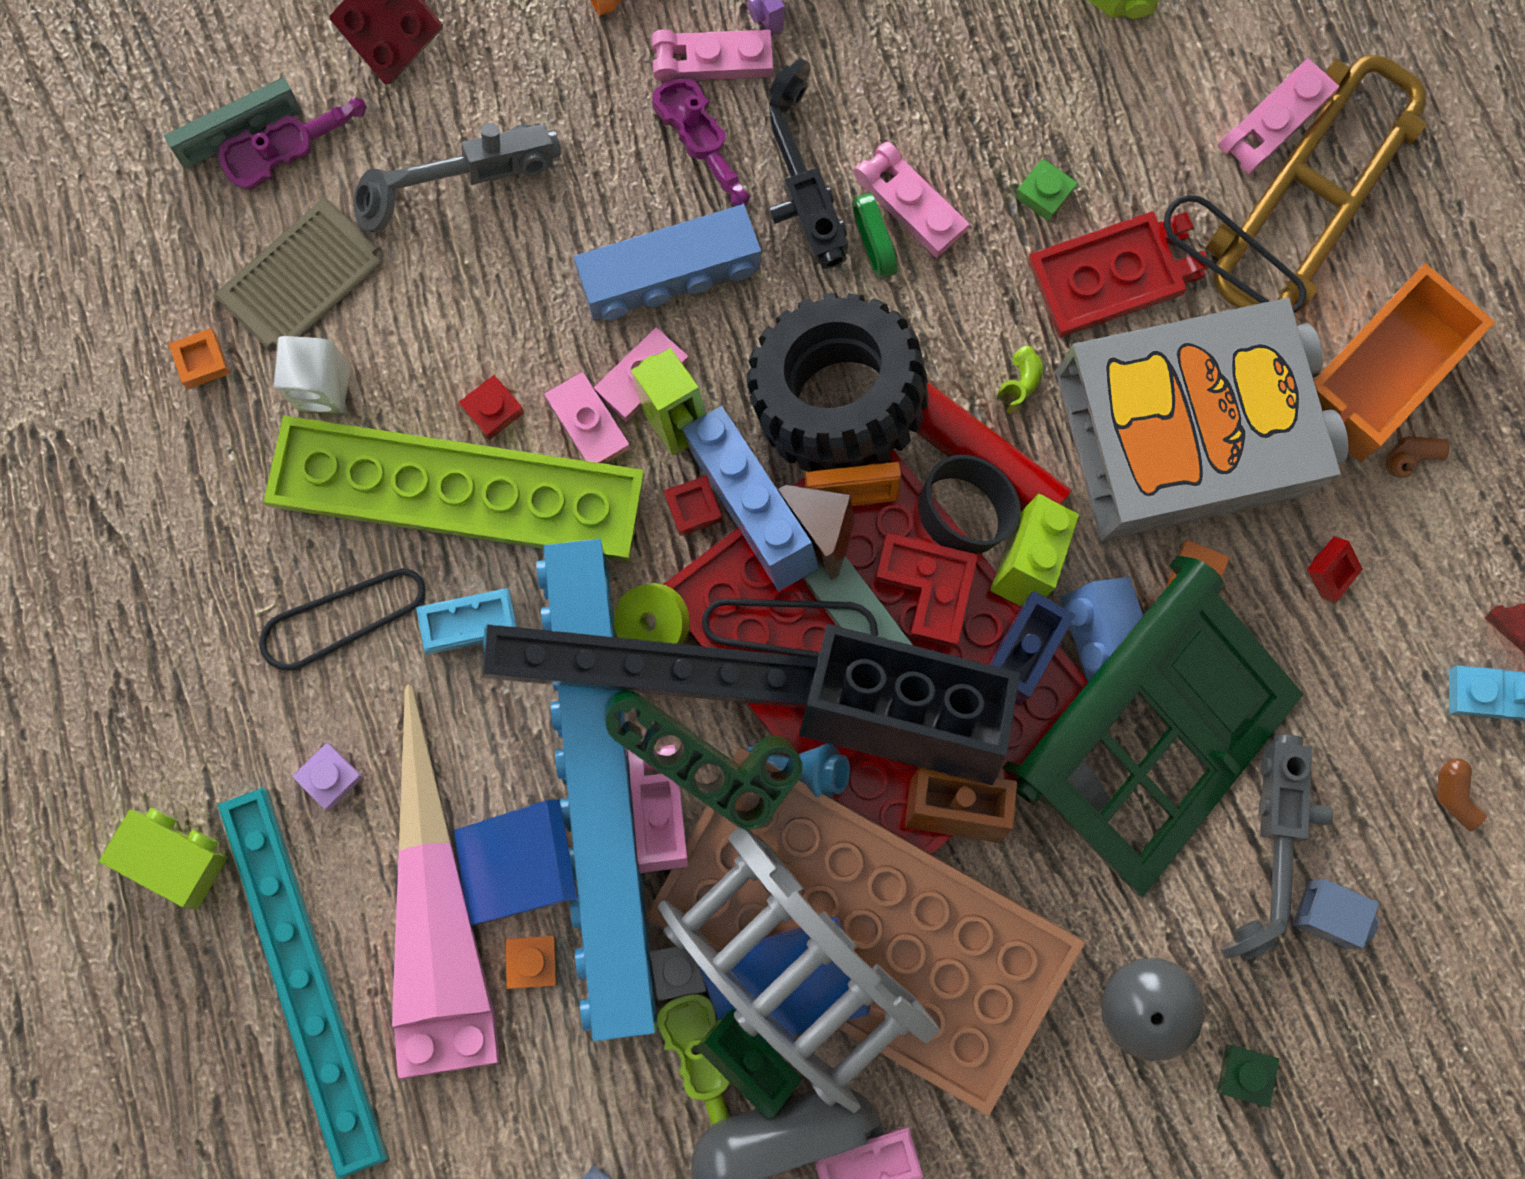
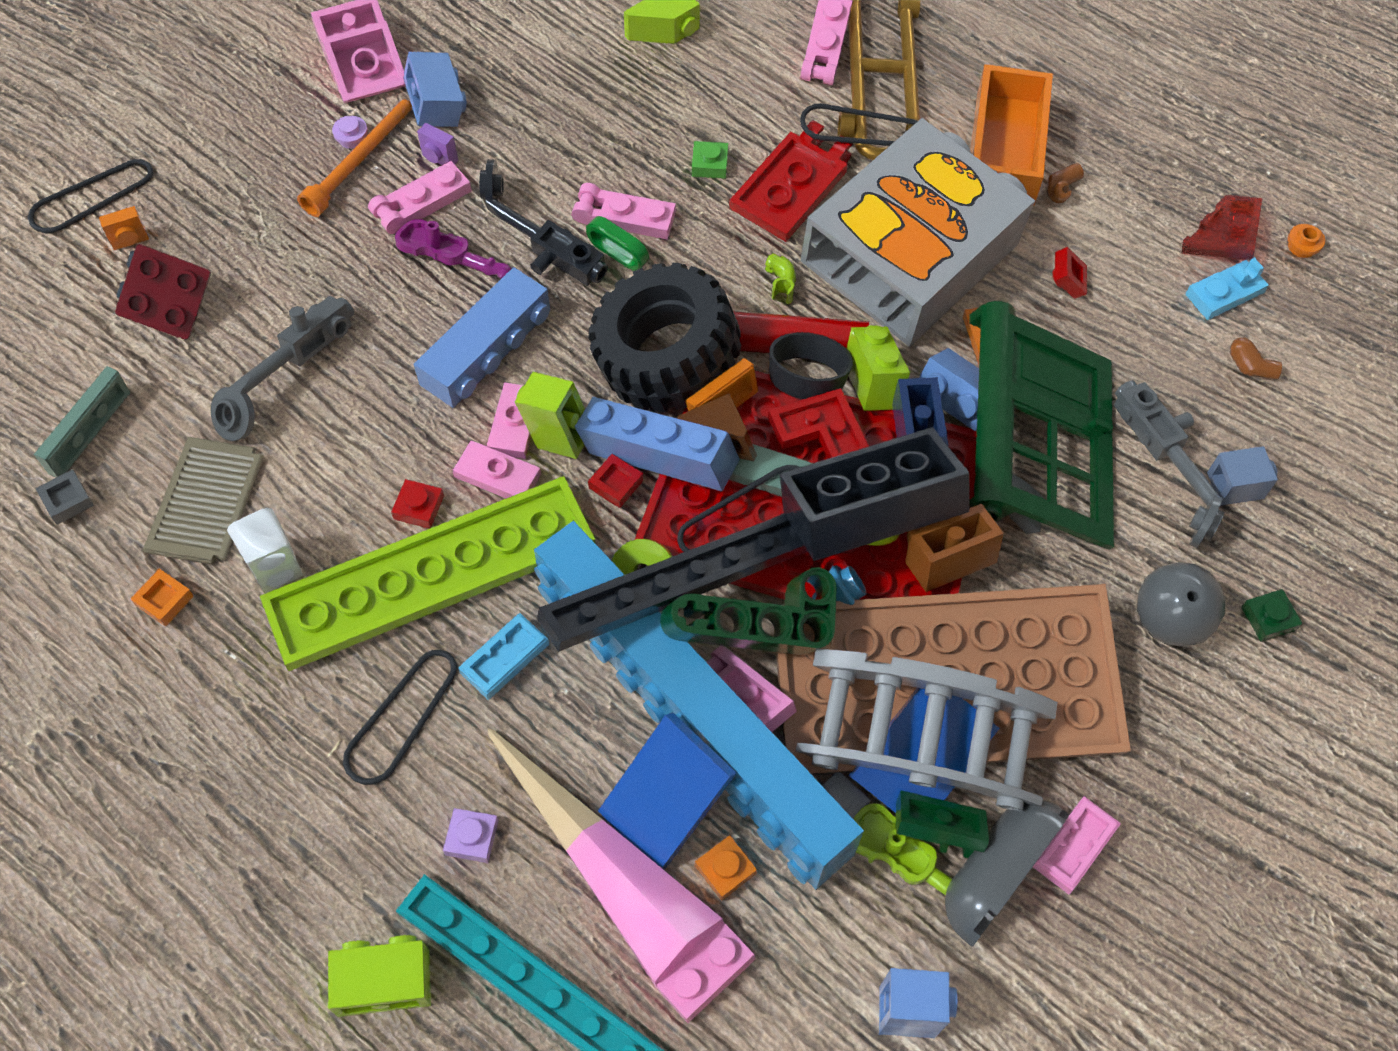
camera: 30 degrees left, 15 degrees down
(173, 194) = (64, 497): none -> dark grey plate
(251, 158) = (113, 441): magenta piece -> none

